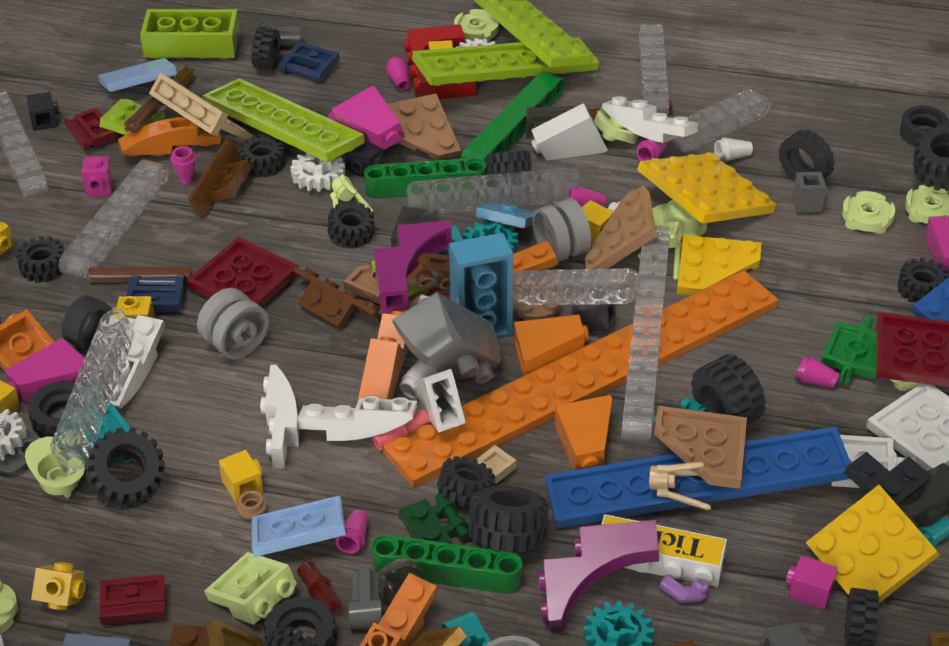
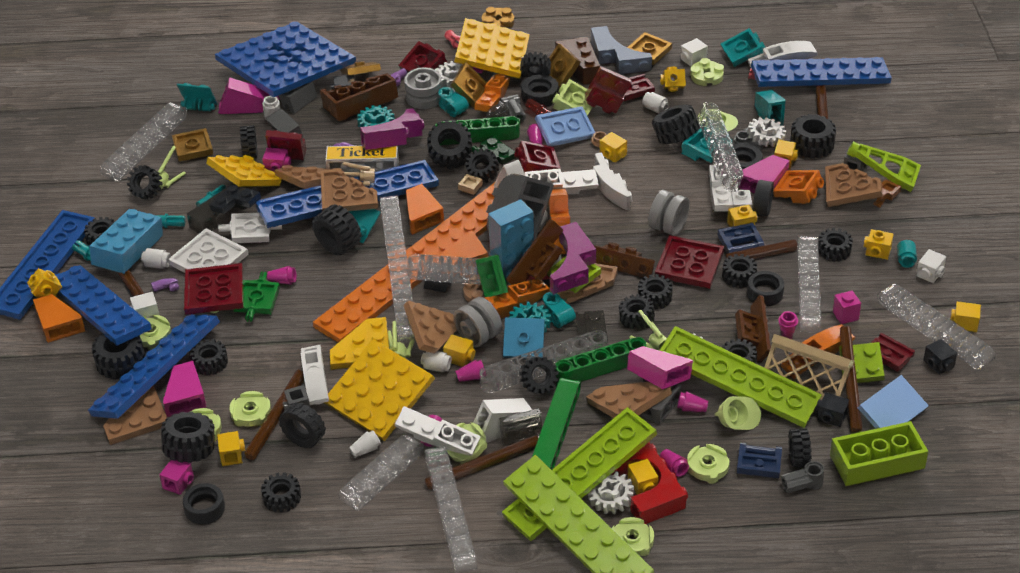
camera: 165 degrees right, 0 degrees up
(119, 550) = (655, 102): none -> white brick
(169, 212) = (766, 278): none -> black tyre
(195, 558) = (607, 90): none -> dark red plate
(197, 243) = (737, 262): none -> black tyre
(200, 81) = (832, 409): none -> black brick
(303, 255) = (659, 284): none -> black tyre
(311, 97) = (739, 413): none -> yellowish green piece
(363, 69) = (708, 472): none -> yellowish green plate
(373, 479) = (536, 157): none -> dark red plate
(523, 256) = (491, 275): none -> green hinge
(756, 528) = (301, 176): none -> medium nougat plate
(784, 229) = (314, 374): none -> white slope
(793, 585) = (283, 140): none -> dark red plate
(835, 122) = (281, 483): none -> black tyre
(835, 205) = (272, 418): none -> reddish brown axle
(893, 170) = (230, 448): none -> yellow brick

